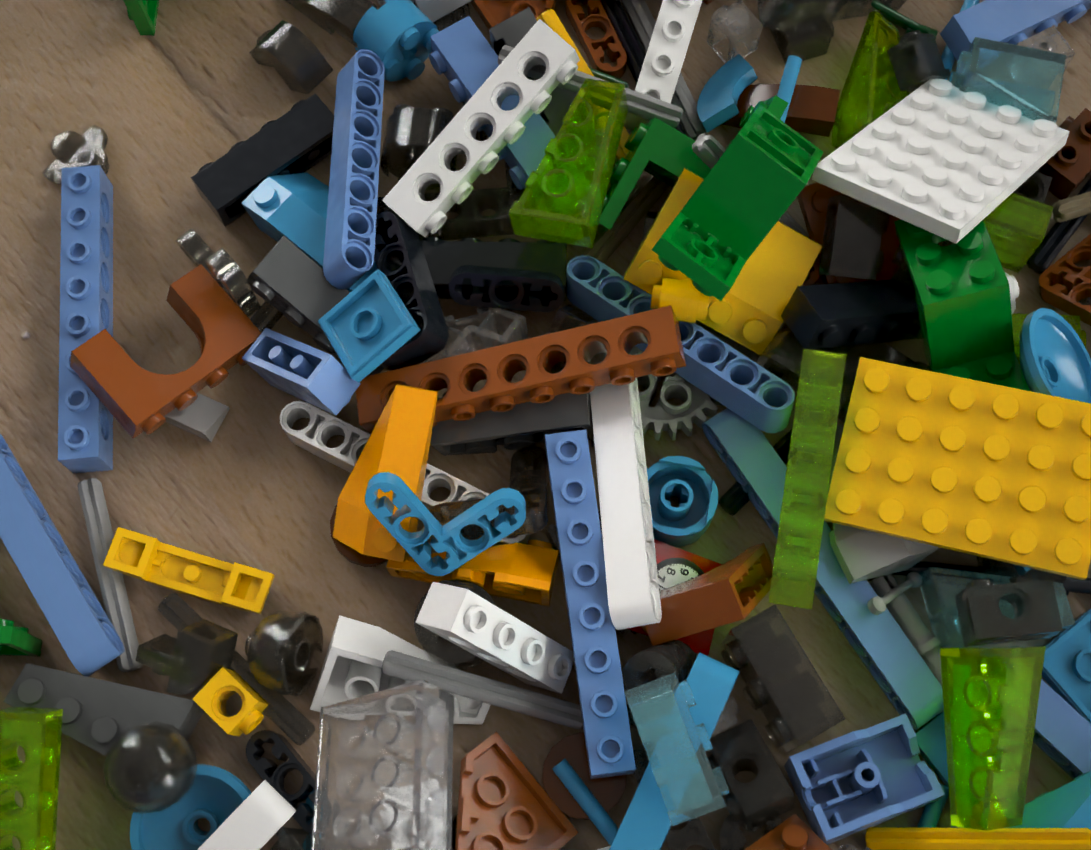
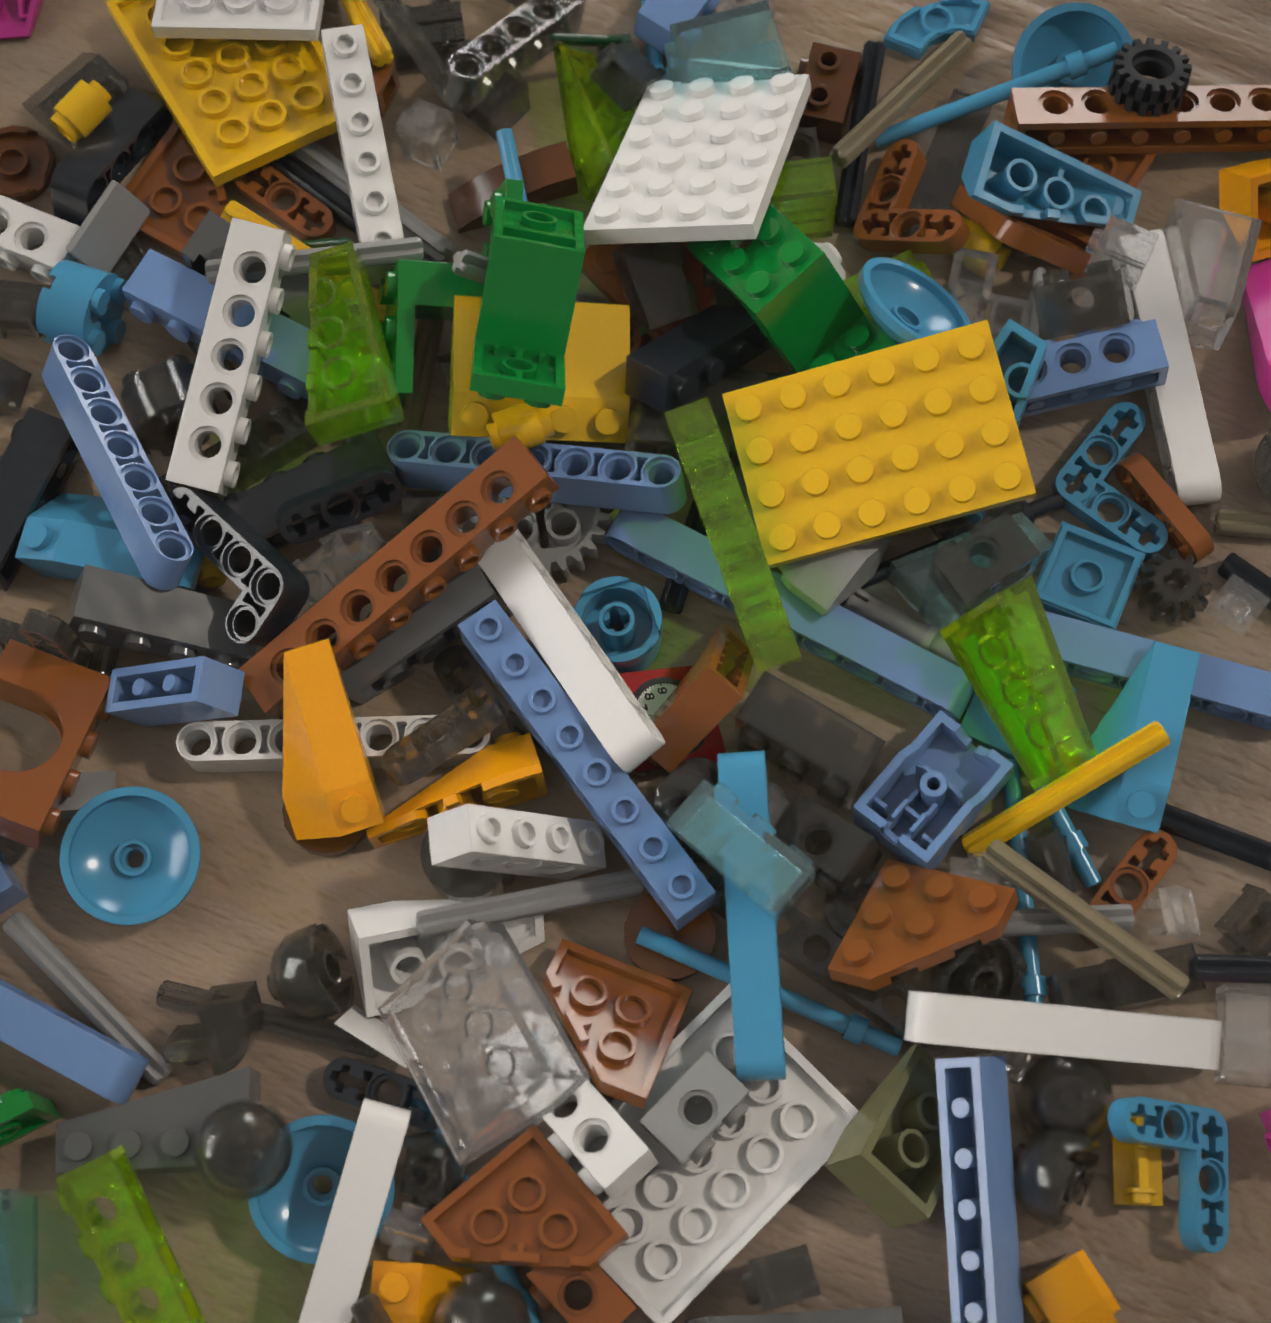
camera: 25 degrees left, 0 degrees up
(176, 467) = (105, 836): none -> dark azure dish
(188, 571) = (169, 952): yellow slope -> none
(213, 701) = (267, 1045): yellow brick -> none
(304, 723) = (371, 1032): none -> white sticker
(368, 325) = (222, 609): dark azure plate -> none
(445, 537) = (416, 772): dark azure beam -> none
(721, 93) = (447, 199): dark azure tile -> none
(878, 605) = (861, 621): light grey hinge -> none

